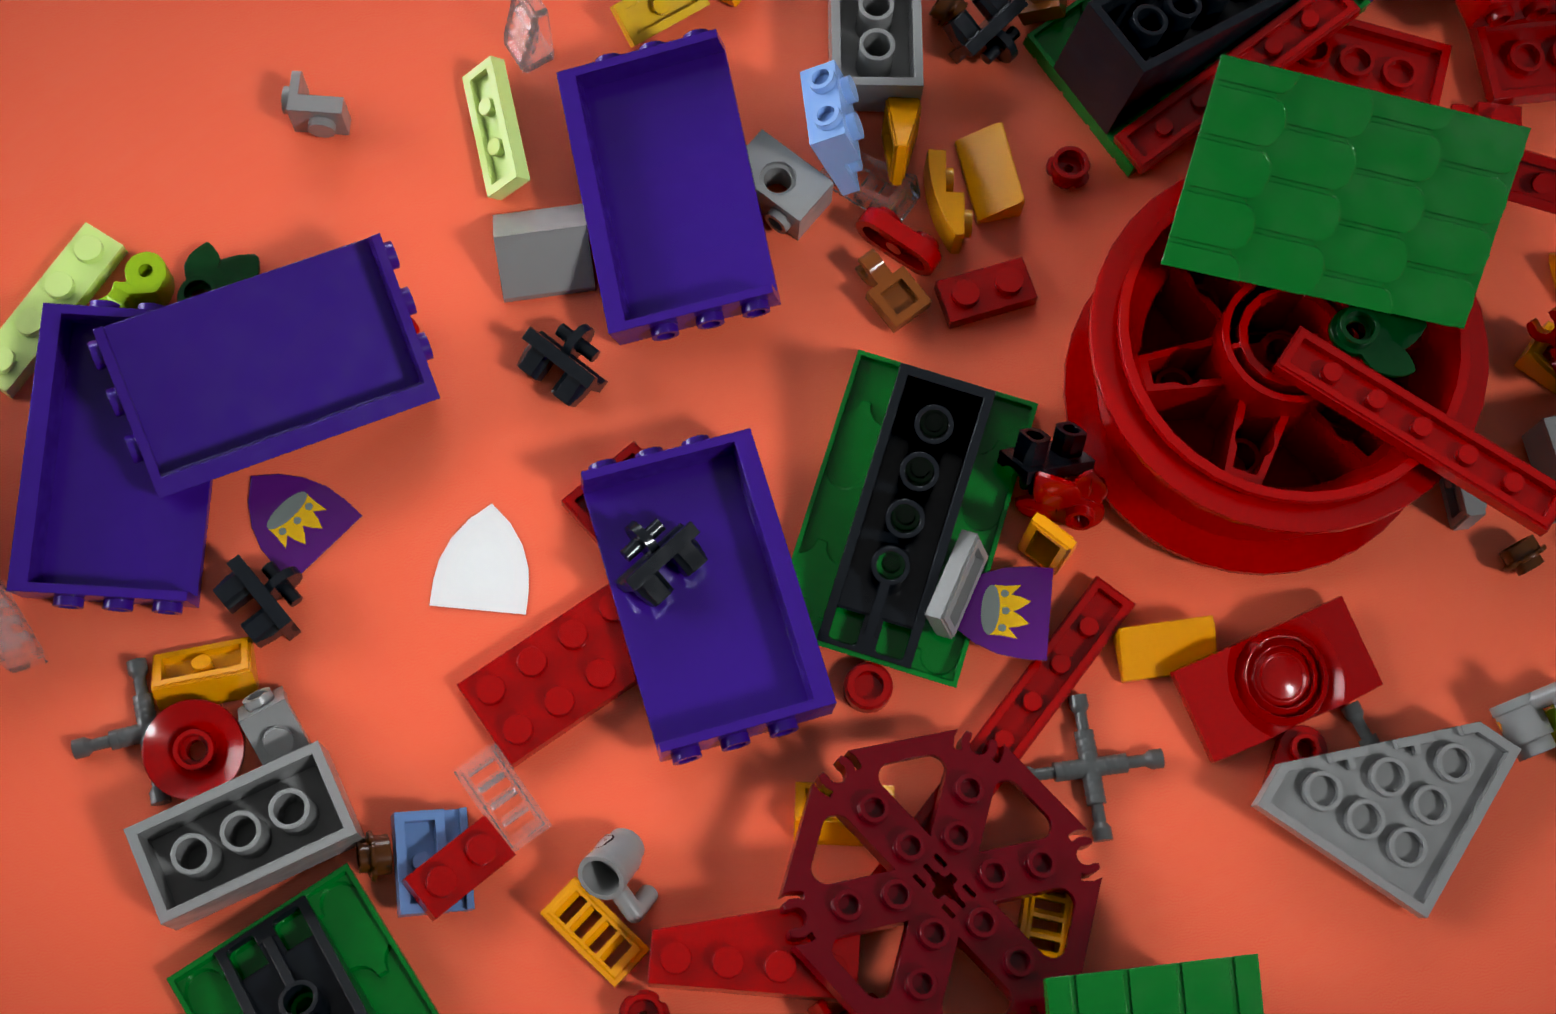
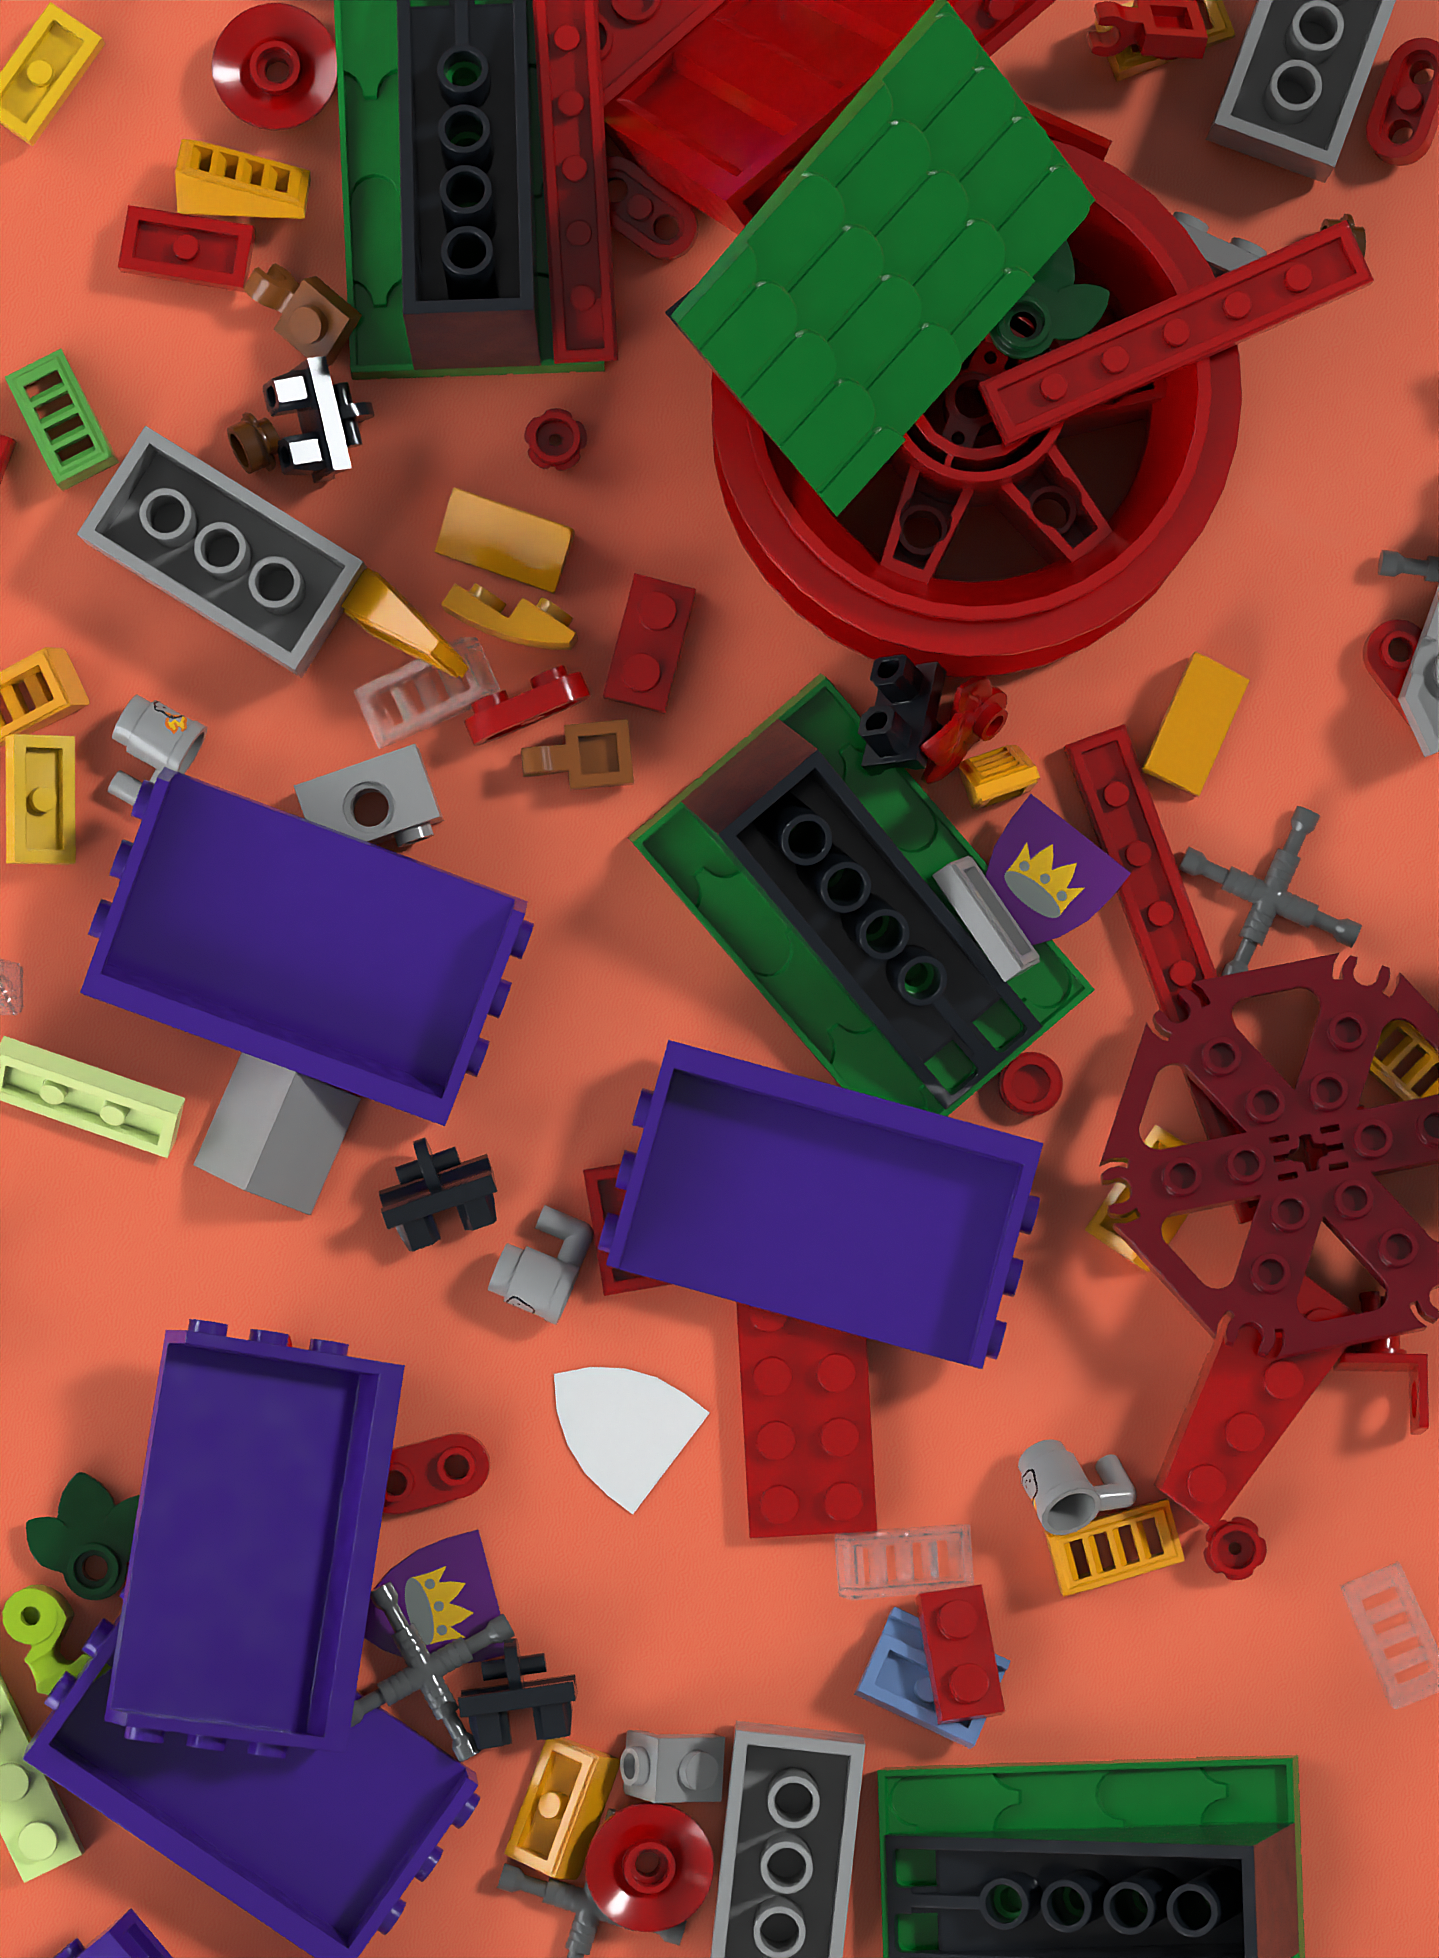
camera: 50 degrees left, 15 degrees up
(247, 529) = (427, 1670): none -> dark grey piece
(374, 855) = (888, 1736): reddish brown plate -> none
(377, 459) = (426, 1473): none -> red plate
(546, 454) = (537, 1279): none -> light grey piece
(677, 546) = (748, 1238): black hips -> none
(743, 48) = (157, 738): none -> light grey piece
(833, 123) = (344, 705): light blue plate -> none
(1276, 679) = (1305, 624): red slope -> none

